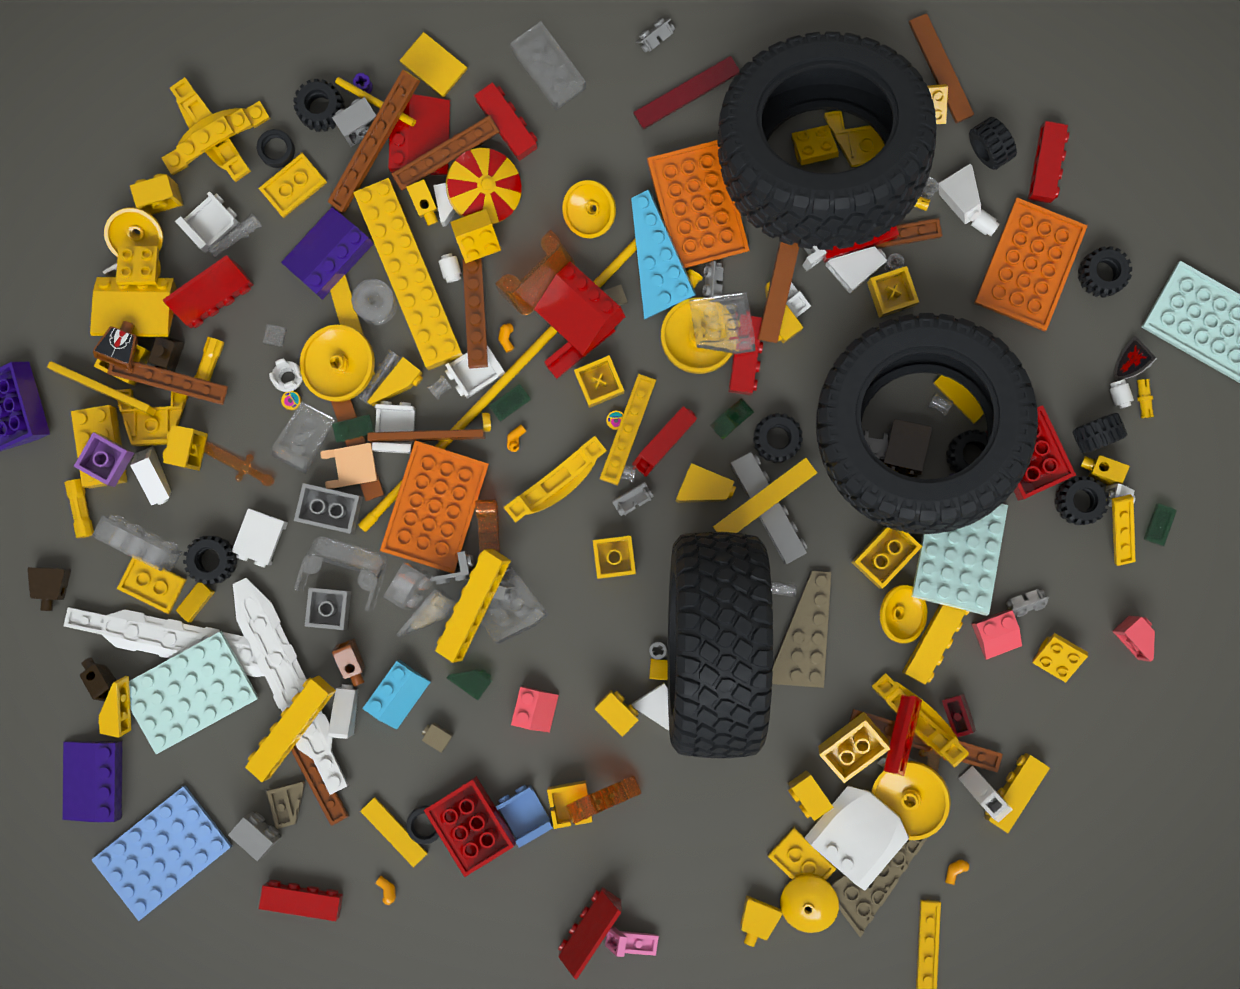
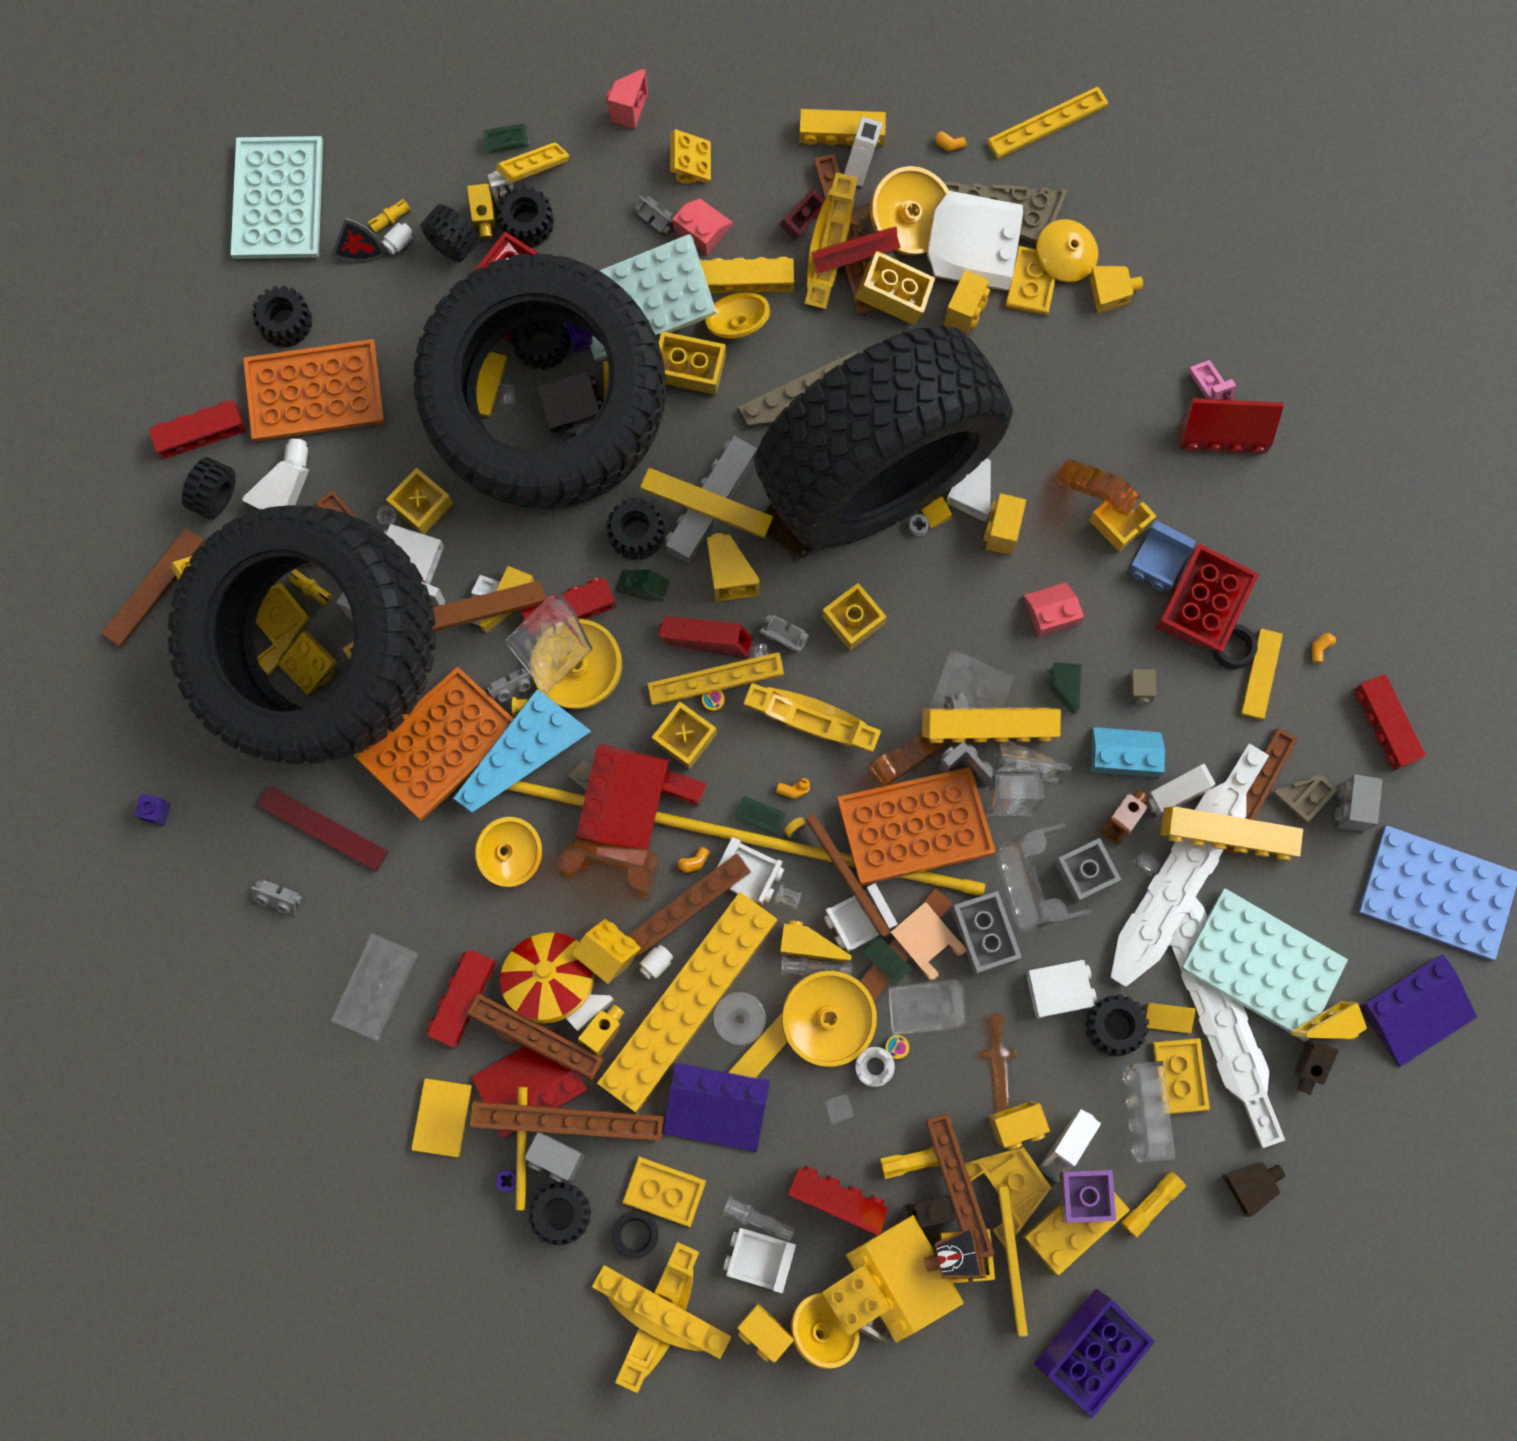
camera: 120 degrees left, 10 degrees down
(309, 658) = (1147, 863): none -> clear slope

